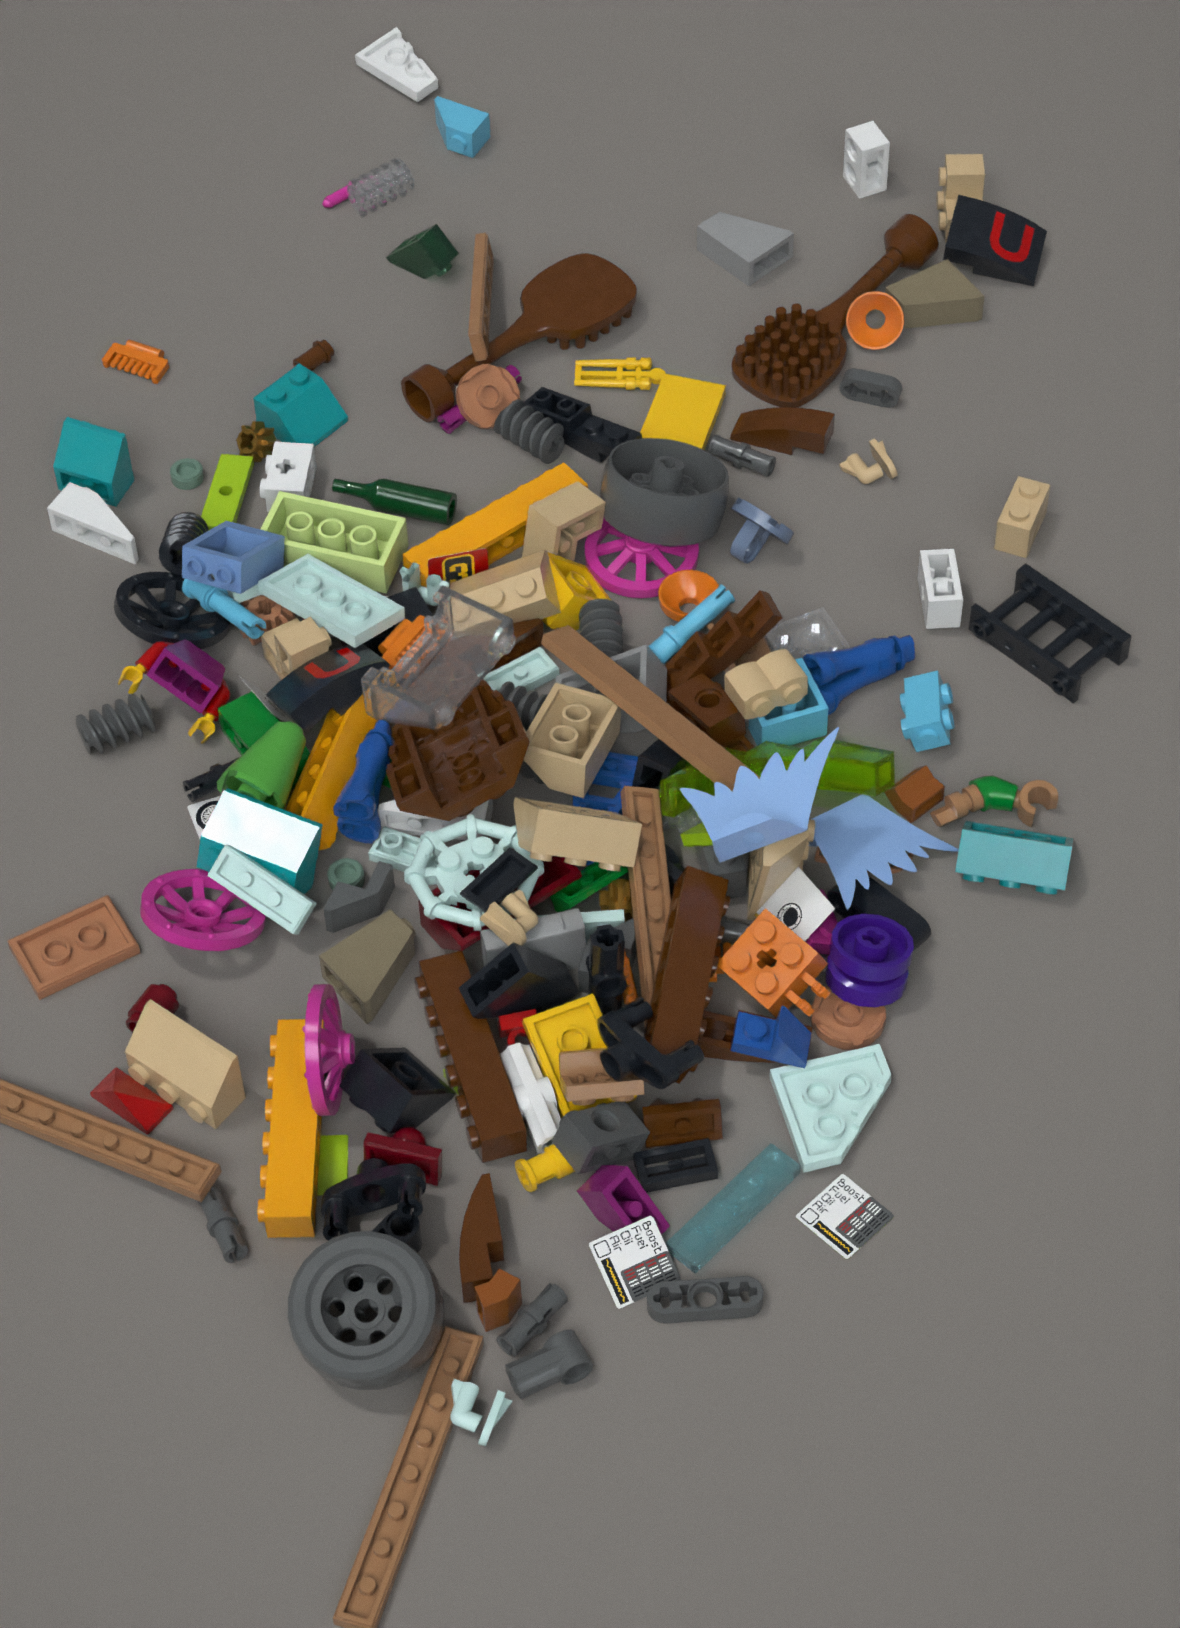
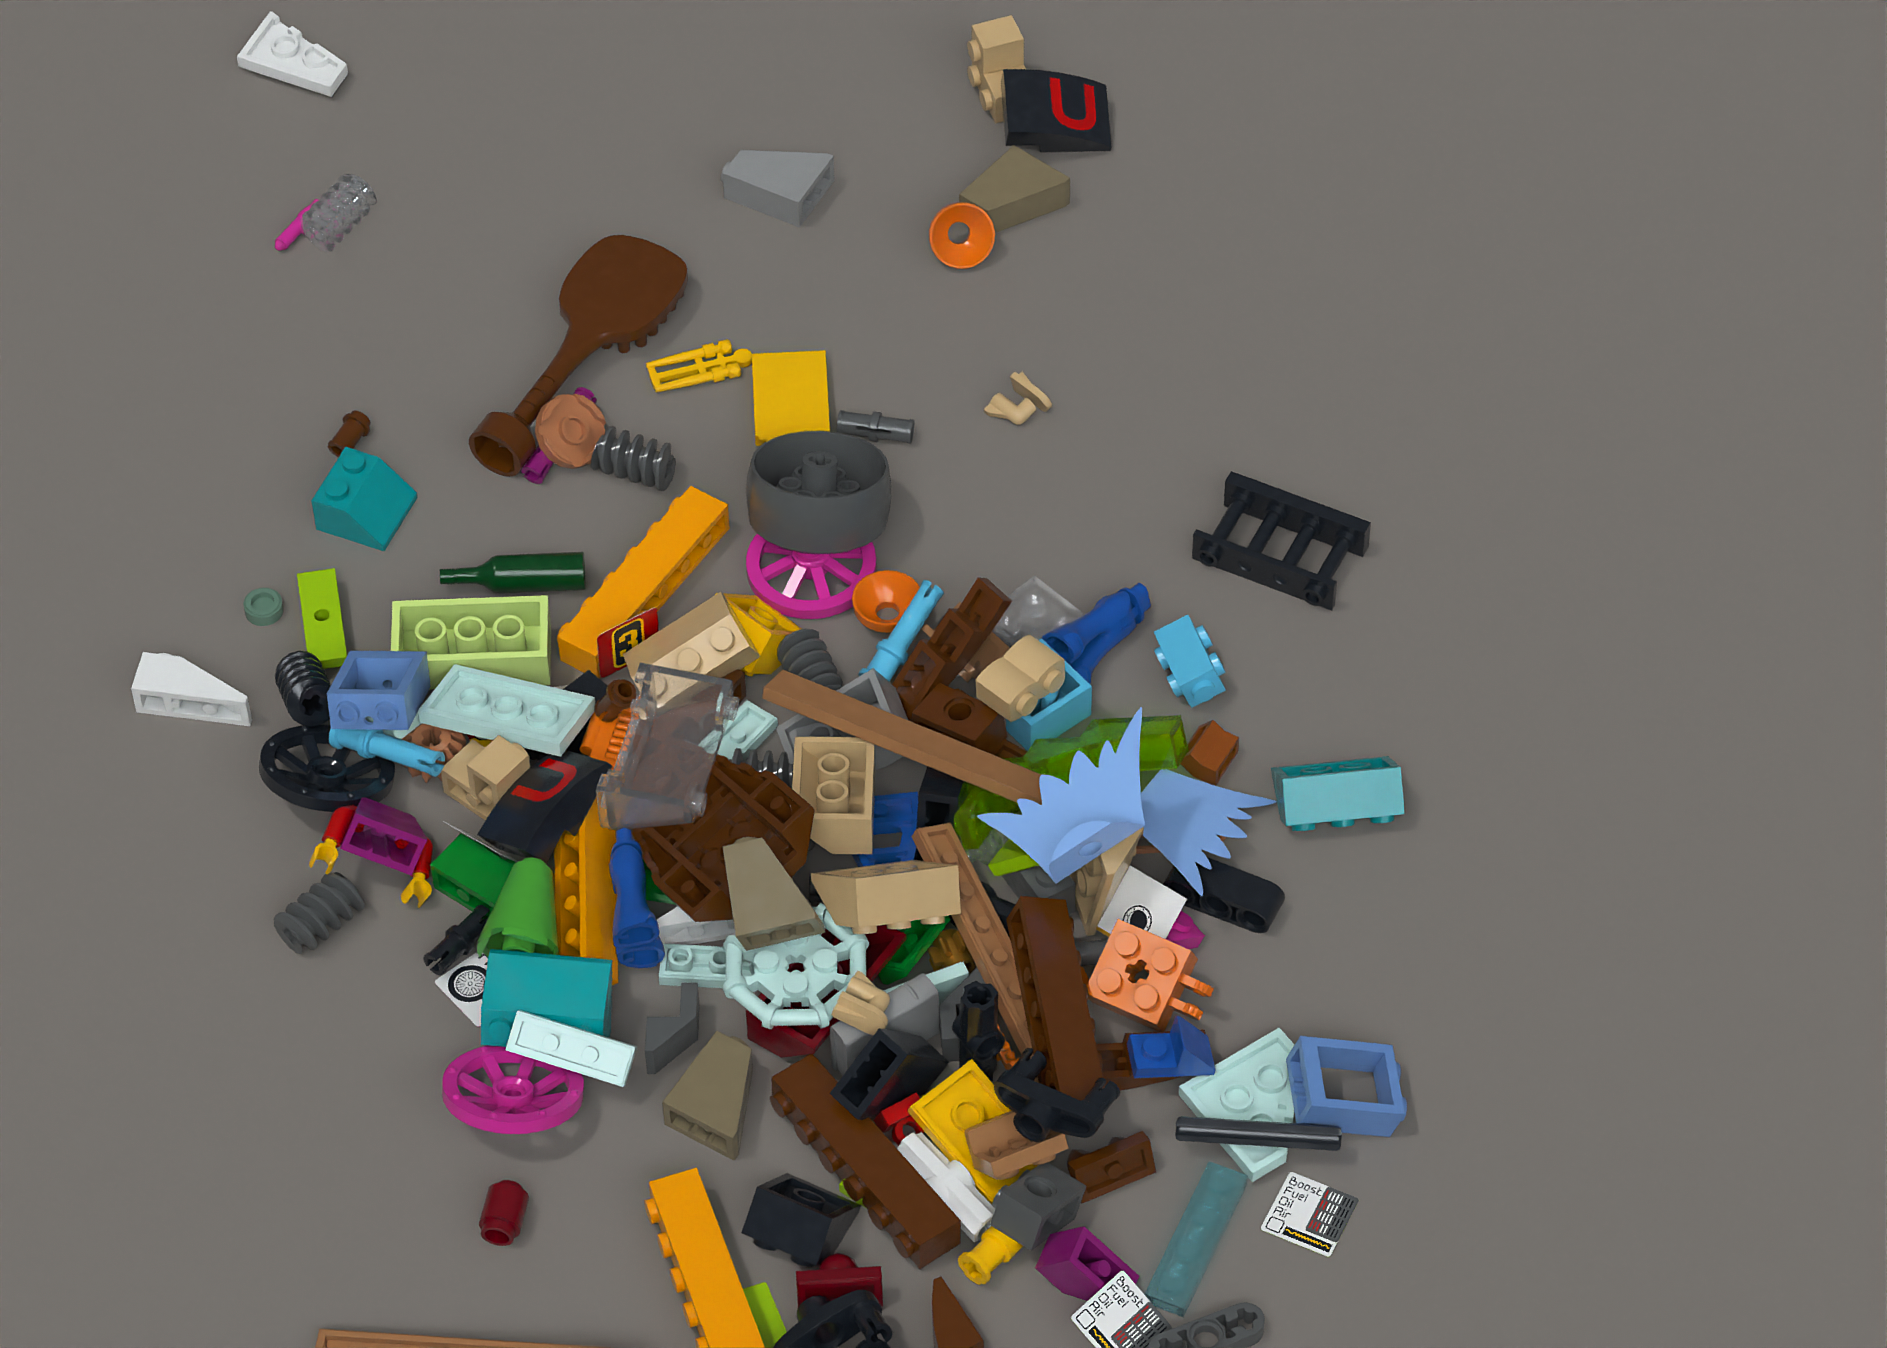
camera: 20 degrees left, 0 degrees up
(73, 947) = (381, 1169): nougat tile -> none
(94, 460) = (157, 619): teal slope -> none
(131, 1100) = (519, 1313): red slope -> none
(139, 354) = (146, 481): orange piece -> none
(184, 1066) = (569, 1258): tan slope -> none
(256, 441) = (331, 548): pearl gold gear -> none
(288, 470) = (385, 578): white brick -> none
(326, 1050) = (729, 1195): dark pink wheel -> none
(346, 871) = (640, 1005): sand green tile -> none
(412, 579) = (610, 664): light aqua piece -> none
(417, 612) = (617, 698): none -> reddish brown pin
(425, 253) = (423, 279): clear green slope -> none
(461, 127) = (397, 116): medium azure slope -> none
(463, 805) = (765, 898): none -> dark tan slope
(481, 297) = (517, 316): medium nougat tile -> none
(499, 879) = (832, 967): black tile -> none
(562, 520) = (719, 555): tan brick -> none
(582, 429) = (692, 443): black slope -> none
(677, 1171) = (1125, 1218): black tile -> none
(755, 531) = (929, 509): sand blue tile -> none
(785, 429) = (910, 385): reddish brown slope -> none
(804, 352) = (893, 291): reddish brown piece -> none
(821, 1130) = (1258, 1133): none -> black axle
(846, 1024) = (1237, 1008): nougat tile -> none
(866, 159) = (878, 48): white brick -> none
(869, 960) = (1237, 943): dark purple wheel -> none
(870, 387) = (985, 313): dark grey beam -> none
(906, 1138) = (1352, 1117): none -> medium blue window
(940, 588) = (1151, 522): white brick -> none
(997, 794) = (1295, 731): medium nougat piece -> none
(1022, 517) = (1204, 419): tan brick -> none

